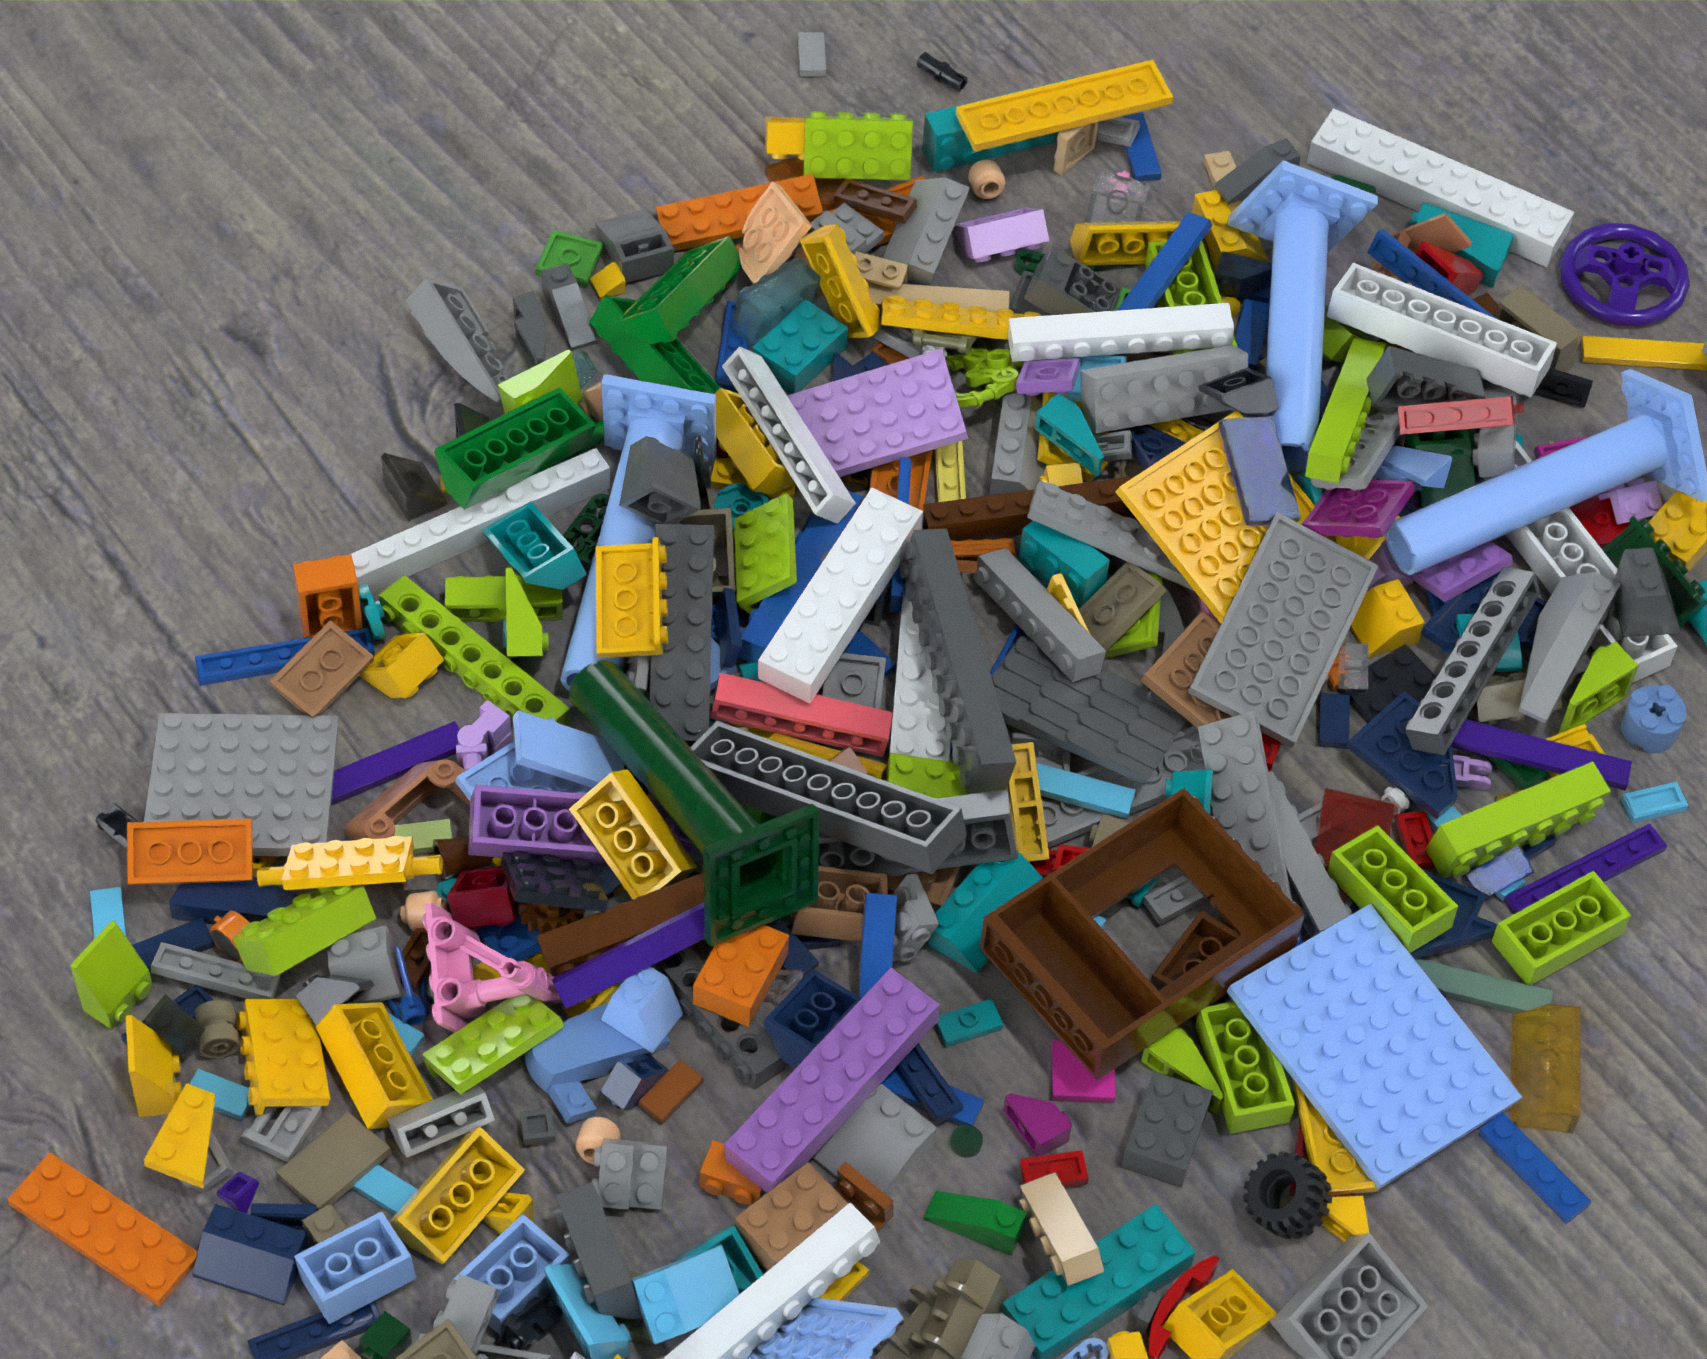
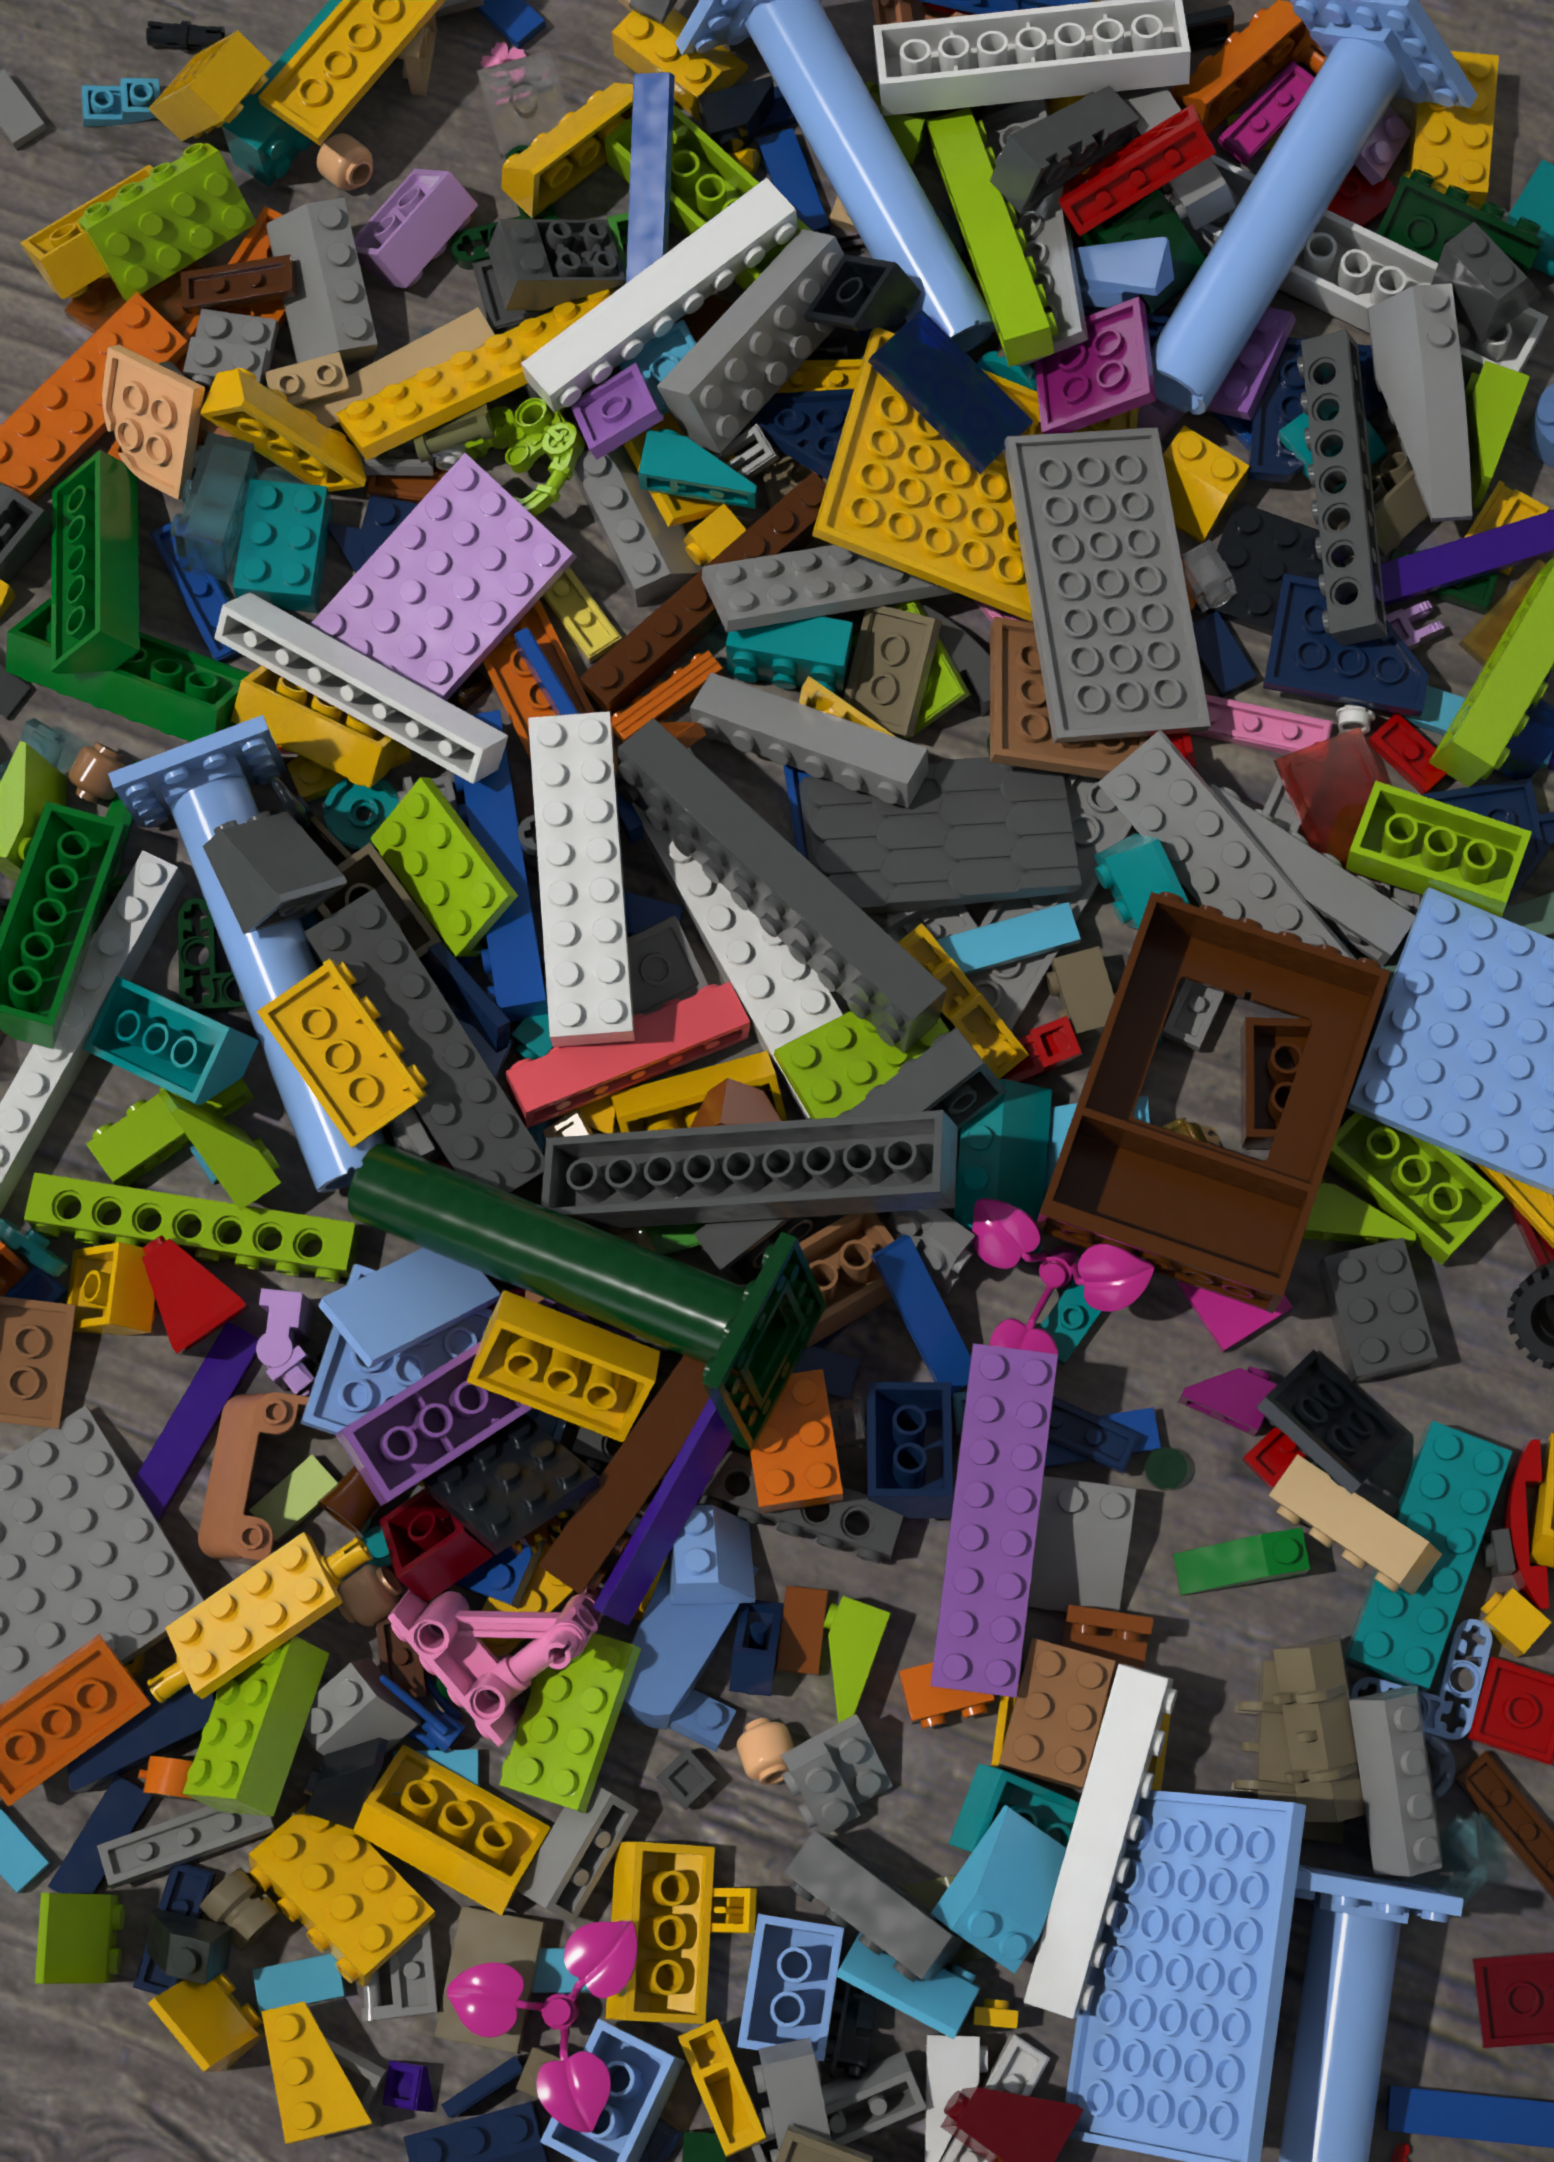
camera: 25 degrees left, 20 degrees up
(341, 1231) = (488, 2001): none -> dark pink plant
(427, 1297) = (722, 2087): none -> yellow slope
(442, 690) = (188, 1295): none -> red slope
(695, 1117) = (853, 1646): none -> lime slope
(878, 86) = (119, 103): none -> medium azure slope
(933, 90) = (211, 87): none -> yellow brick
(1001, 991) = (1109, 1273): none -> dark pink plant
(1090, 1165) = (1331, 1421): none -> black plate
(1325, 767) = (1262, 726): none -> bright pink tile
(1570, 419) = (1242, 65): none -> orange slope

